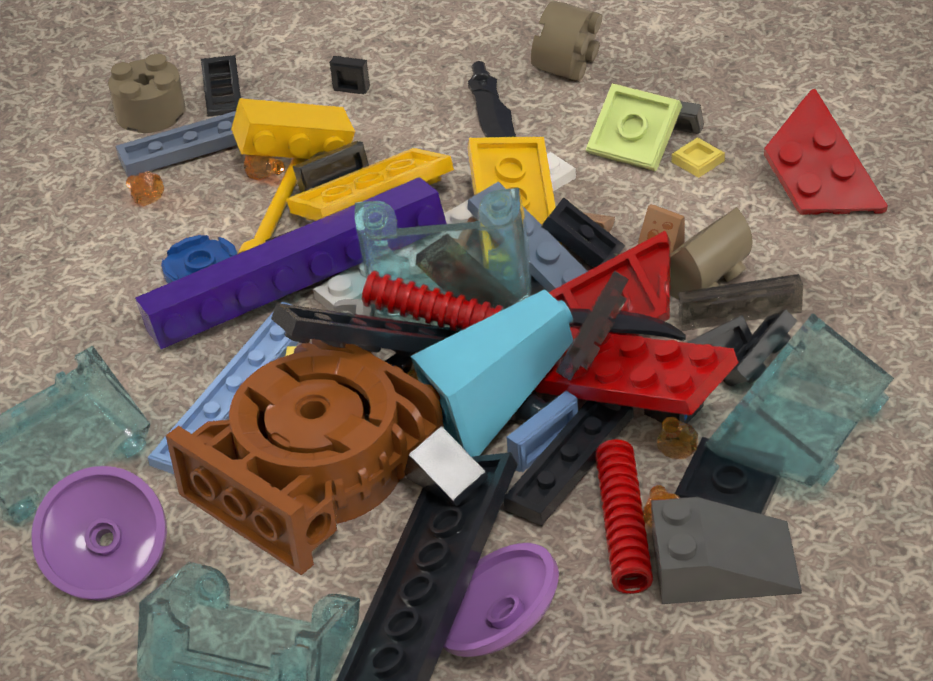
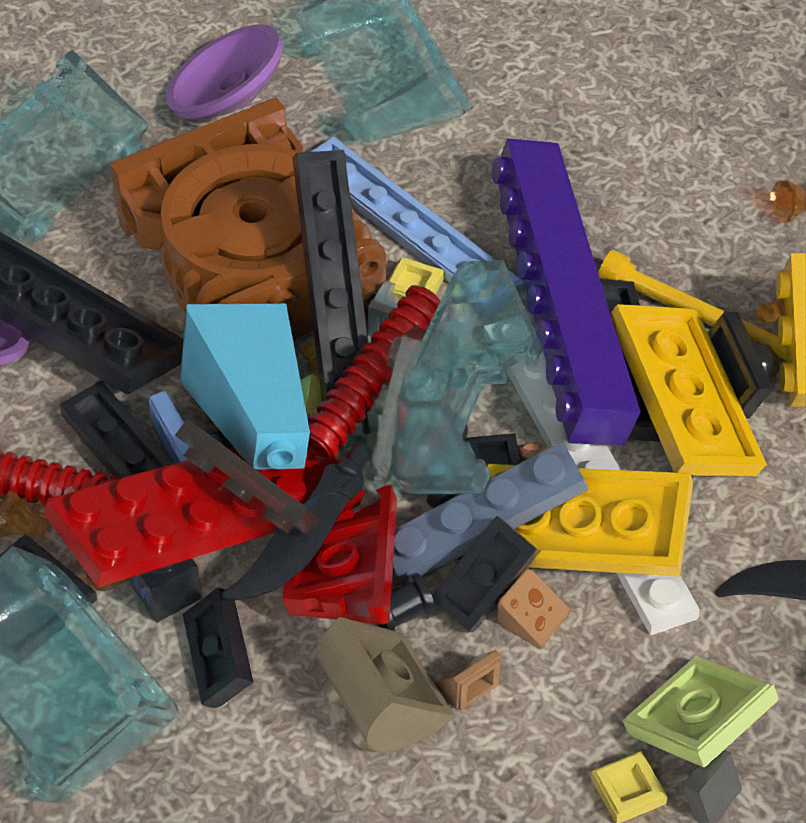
camera: 105 degrees right, 10 degrees up
(178, 258) = (644, 242): blue tile -> none
(444, 468) = (144, 323): slope -> none
(751, 299) = (289, 709): clear smoke plate -> none
(767, 339) = (183, 682): black plate -> none

